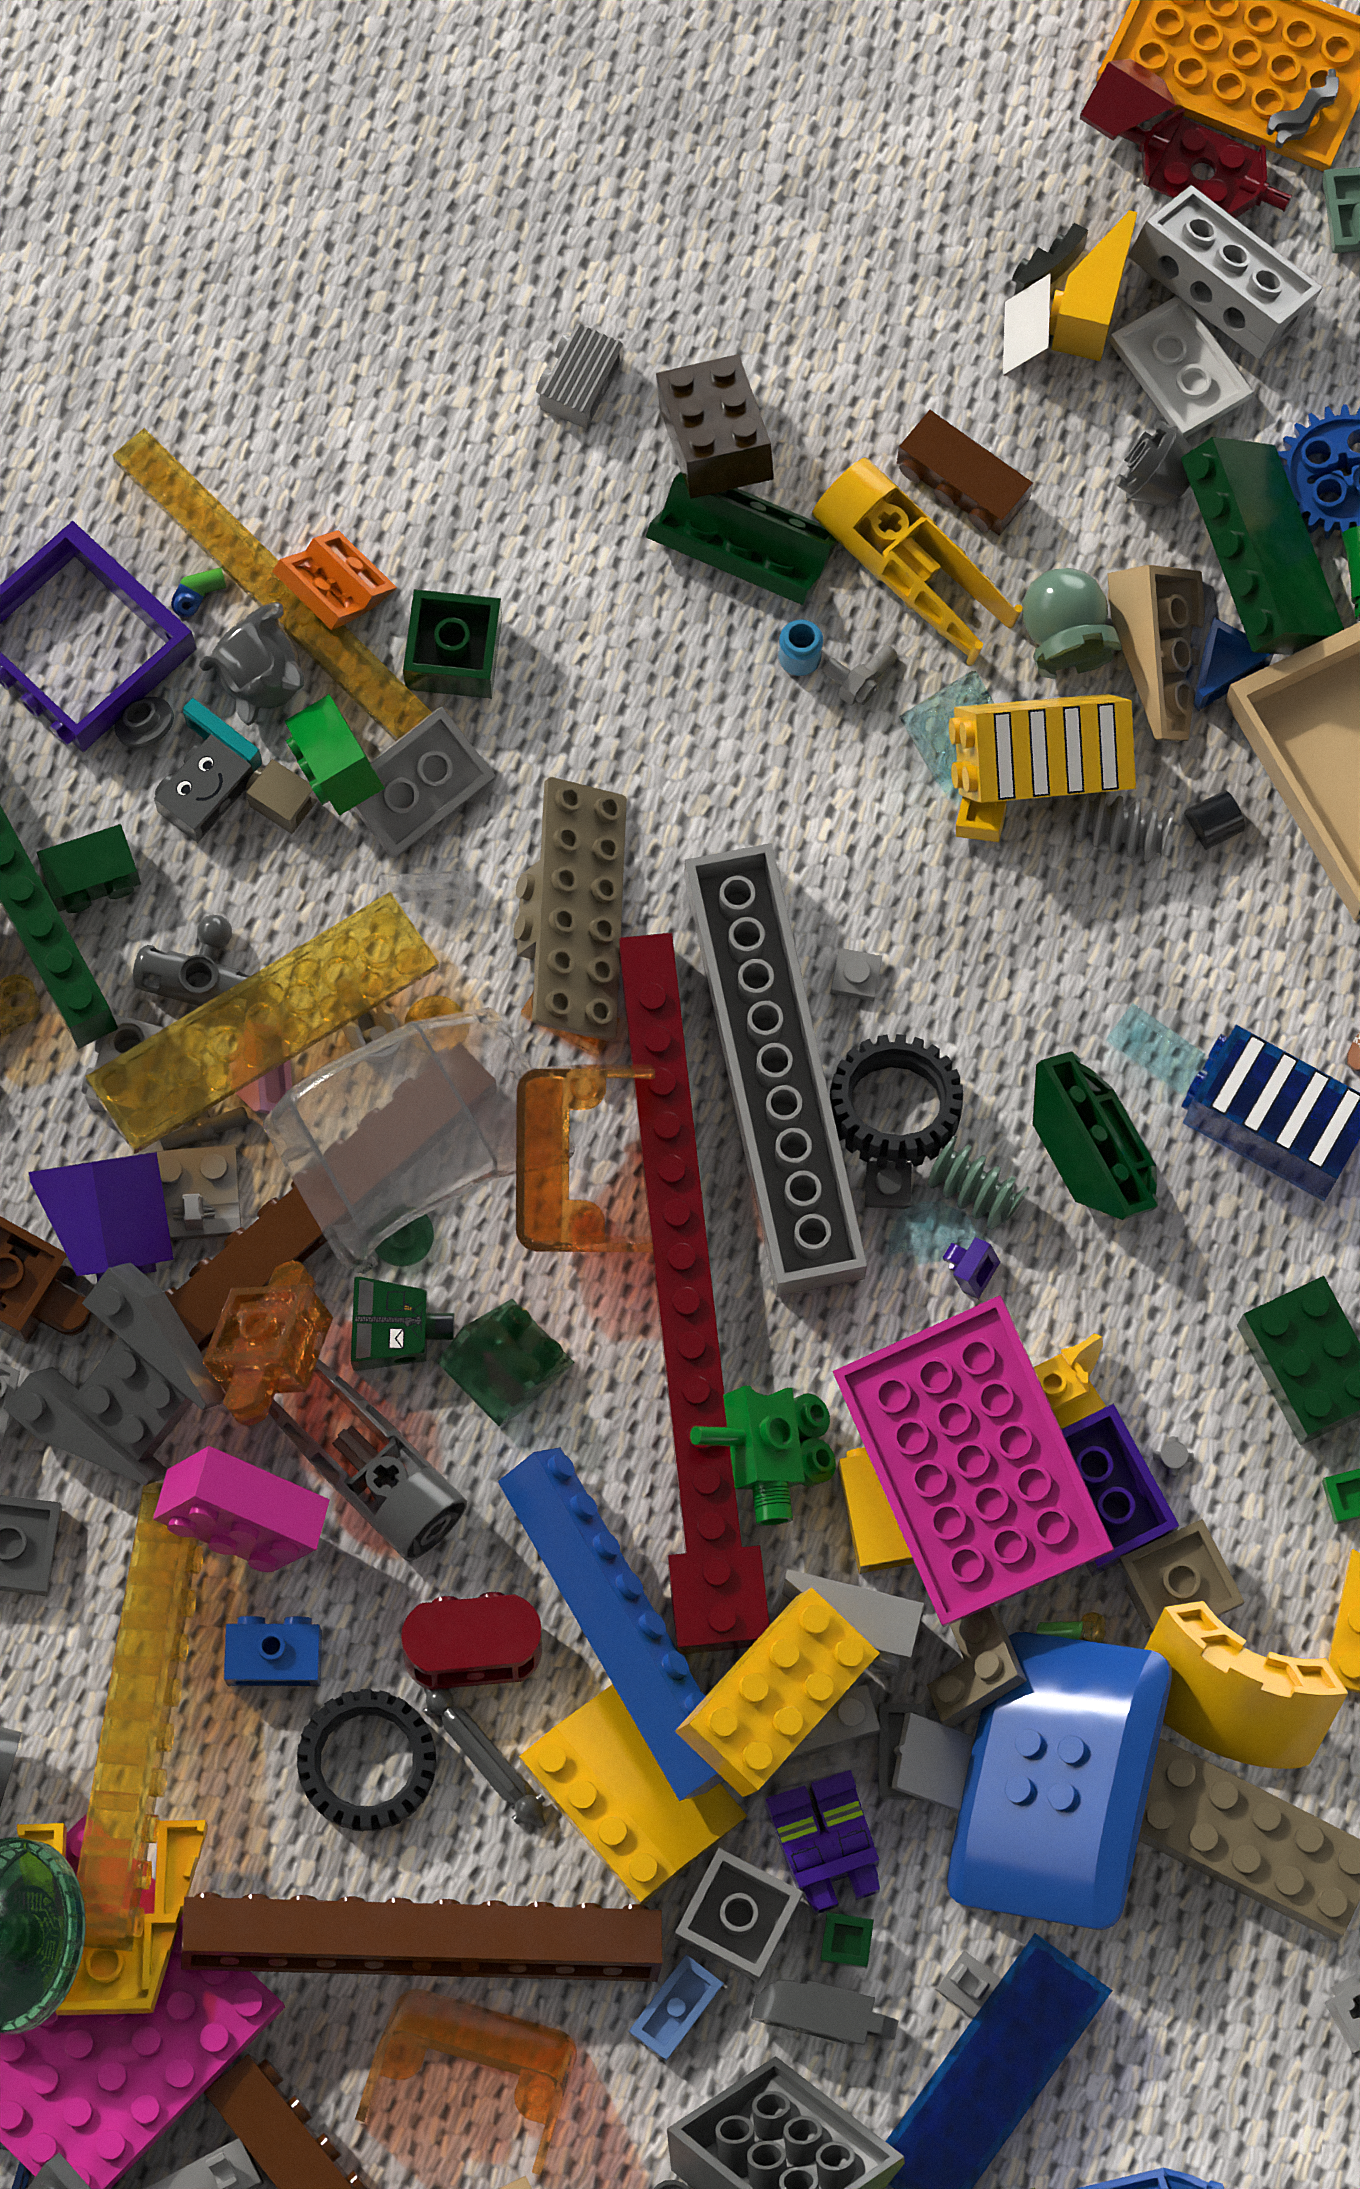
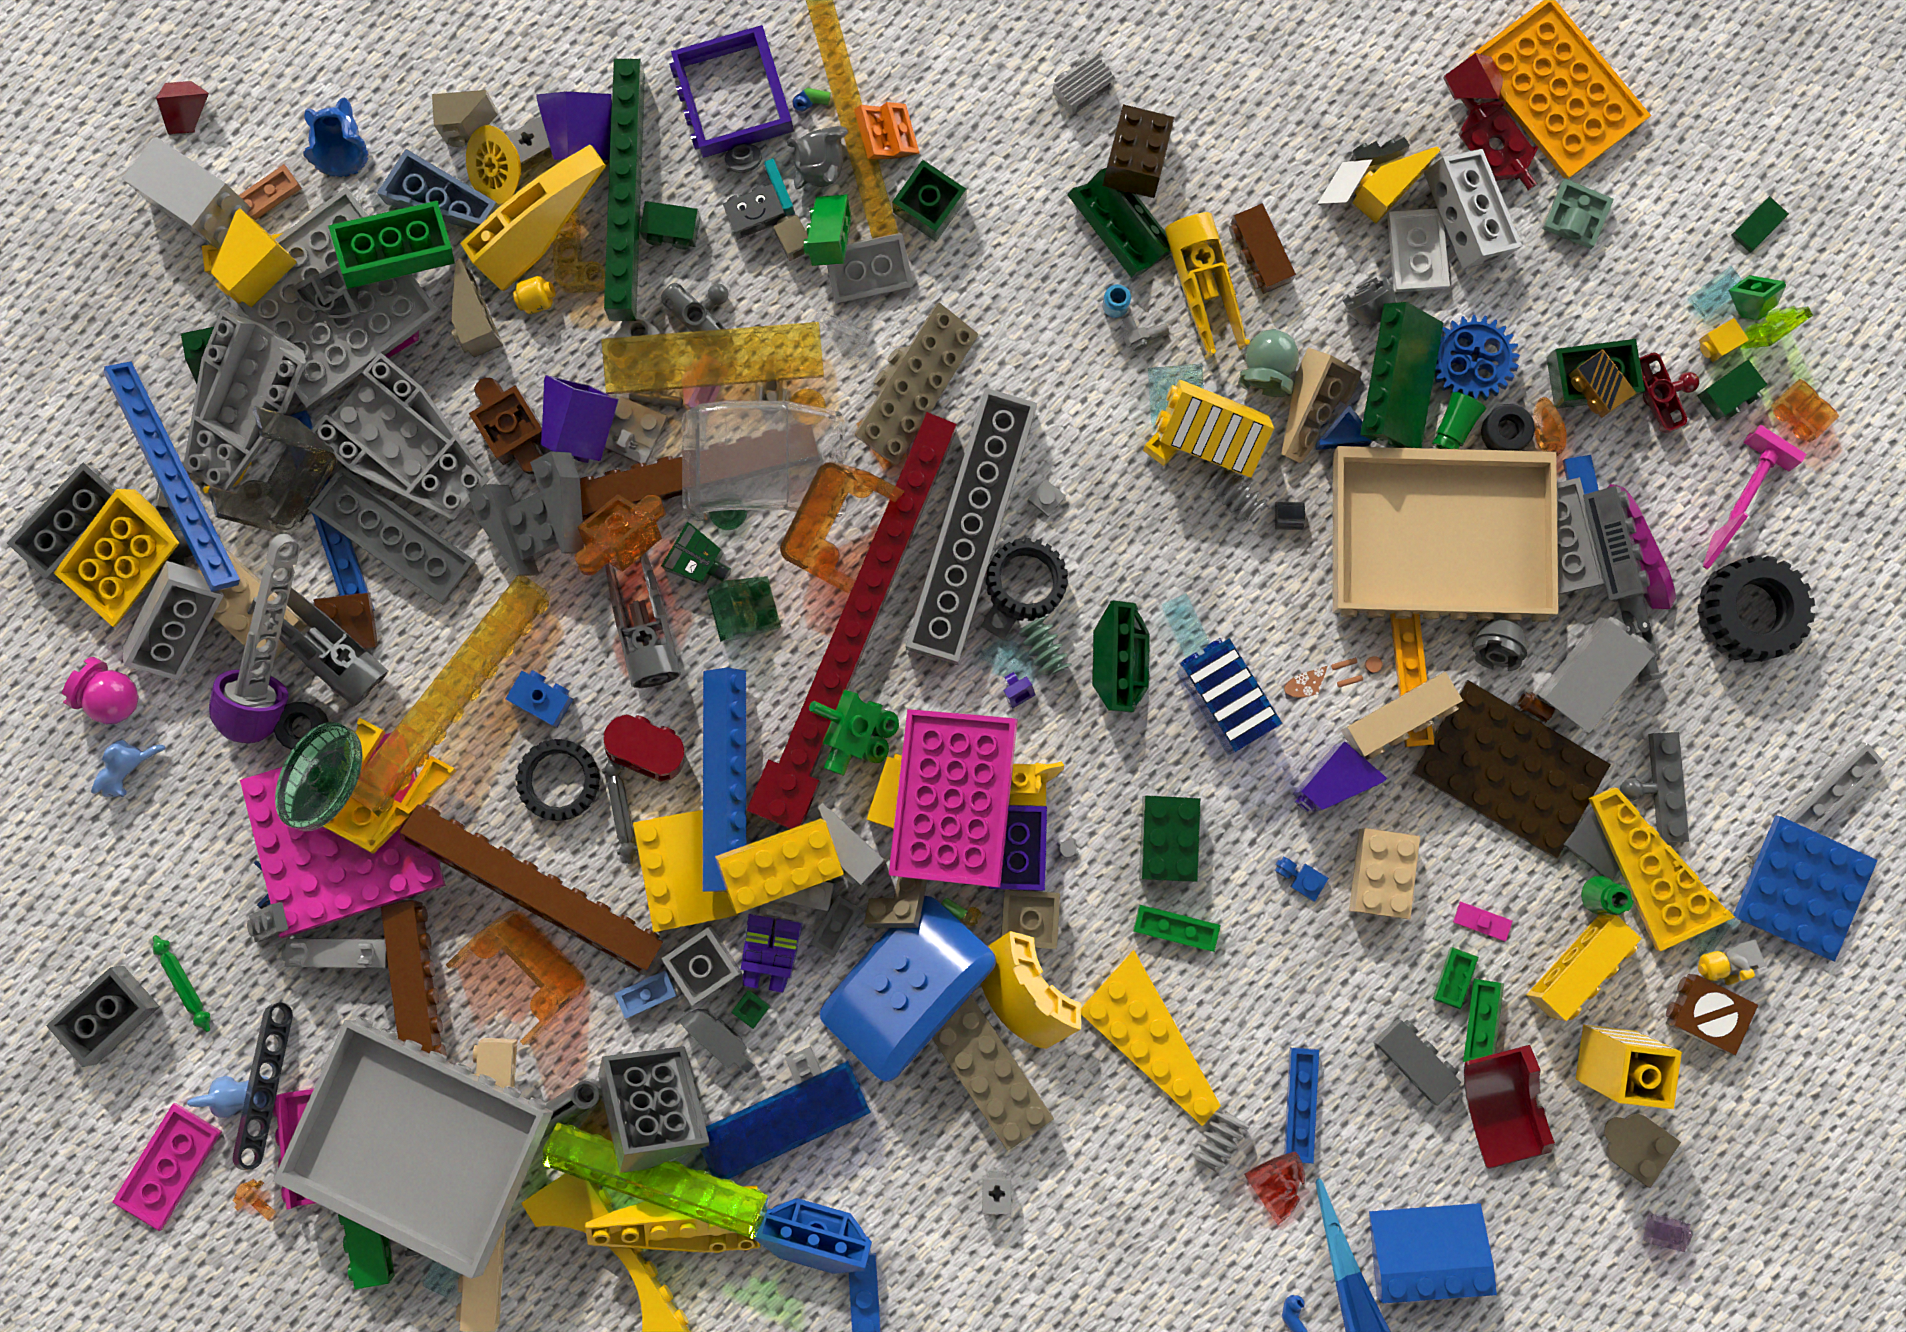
camera: 30 degrees right, 10 degrees up
(241, 1510) = (556, 616): dark pink brick -> none
(932, 1761) = (847, 941): light grey piece -> none
(1295, 123) = (1562, 142): dark grey hair -> none

